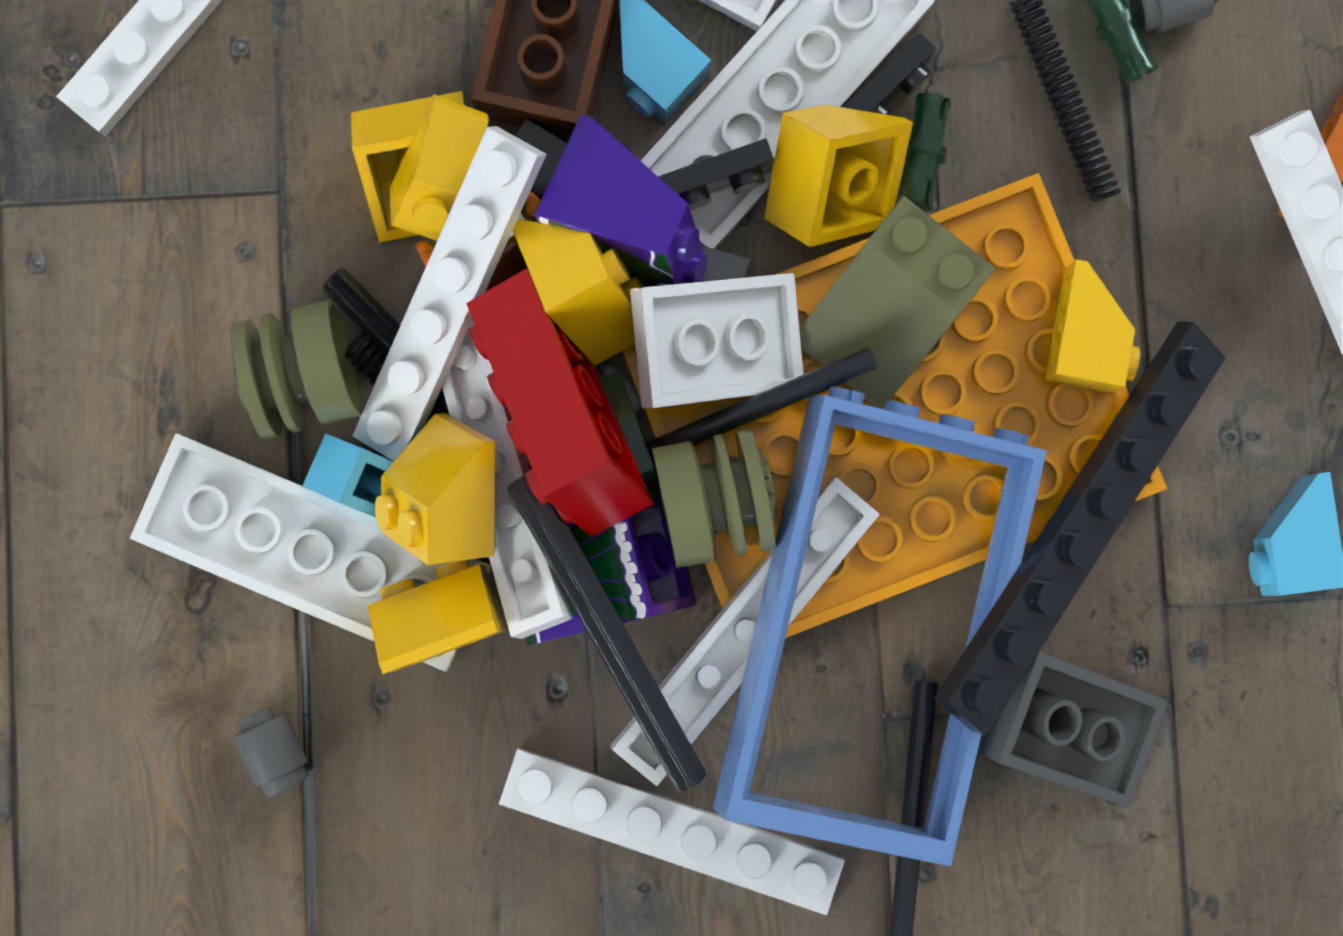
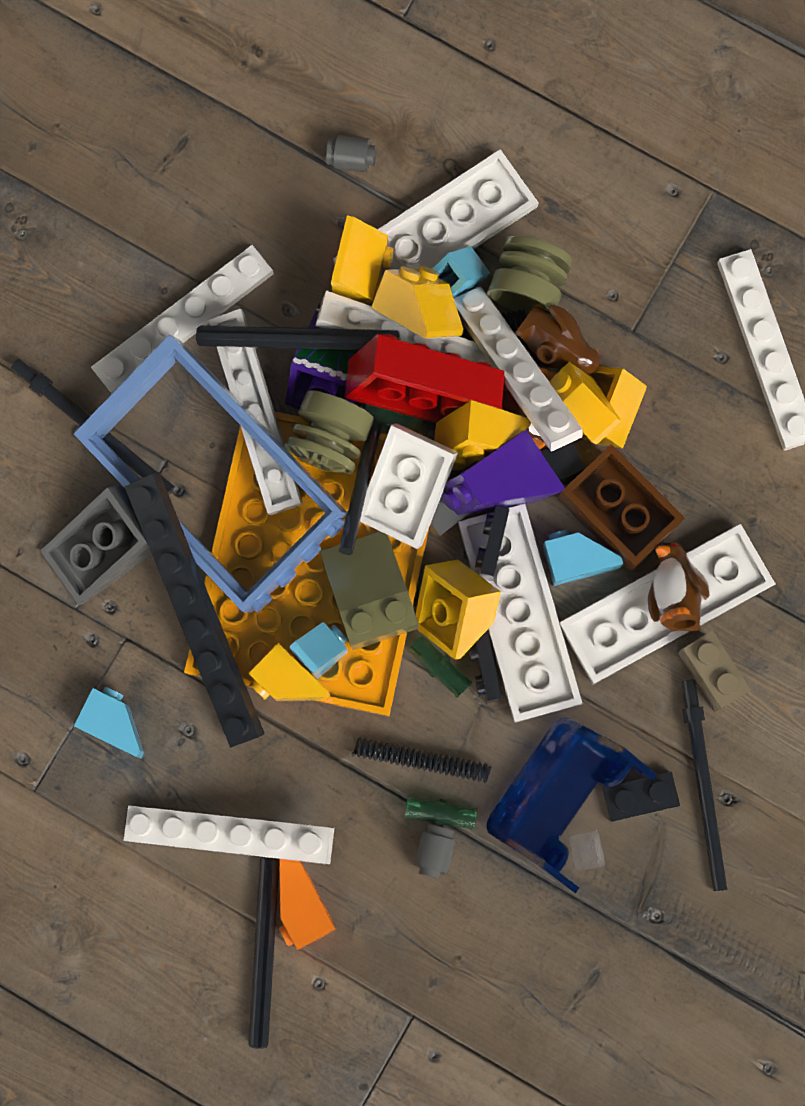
camera: 125 degrees right, 5 degrees down
(367, 271) = (556, 340): none -> reddish brown animal
(1025, 312) = (320, 649): none -> medium azure slope

